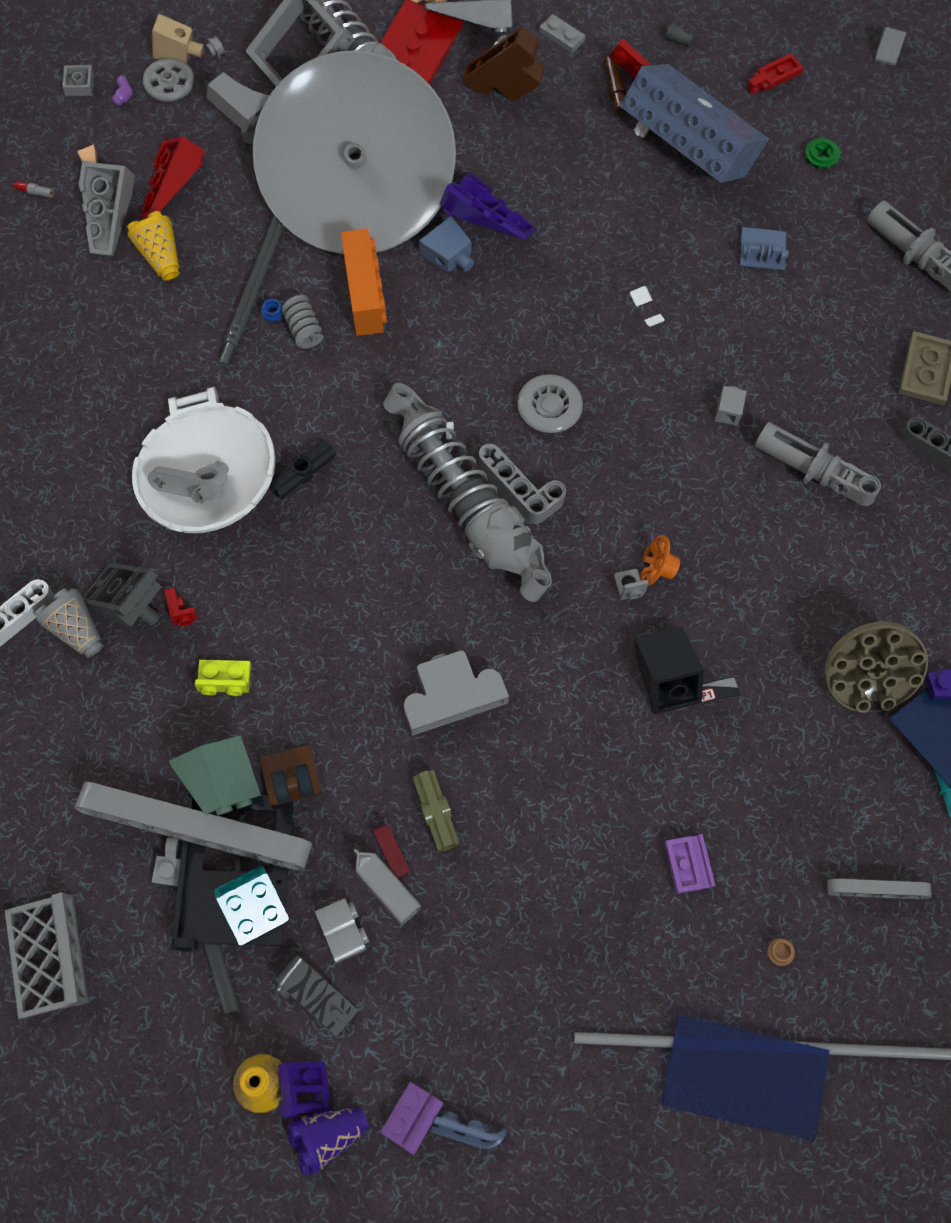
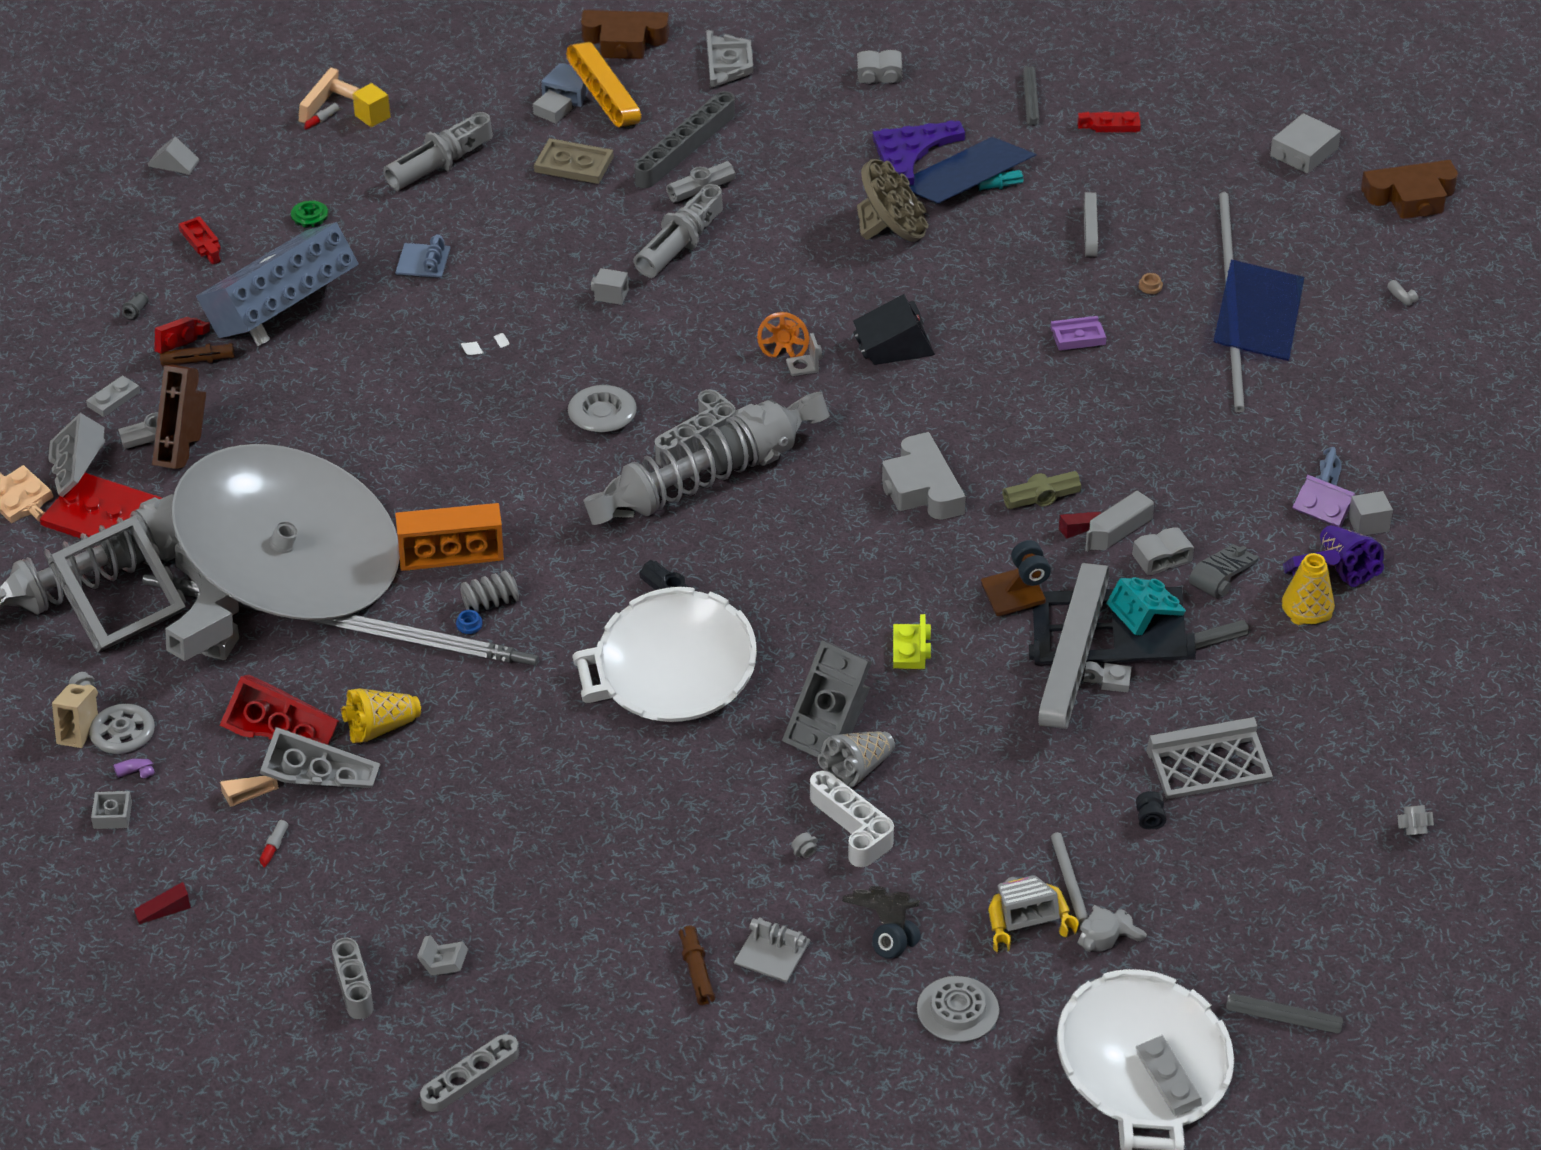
camera: 85 degrees left, 25 degrees down
(202, 485) = (698, 652): light grey piece -> none
(218, 775) = (1020, 625): sand green slope -> none
(389, 1170) = (1370, 513): none -> light grey piece
(447, 246) = (401, 480): sand blue torso -> none
(475, 204) = (367, 445): dark purple wedge -> none
(896, 473) = (699, 178): none -> light grey piece

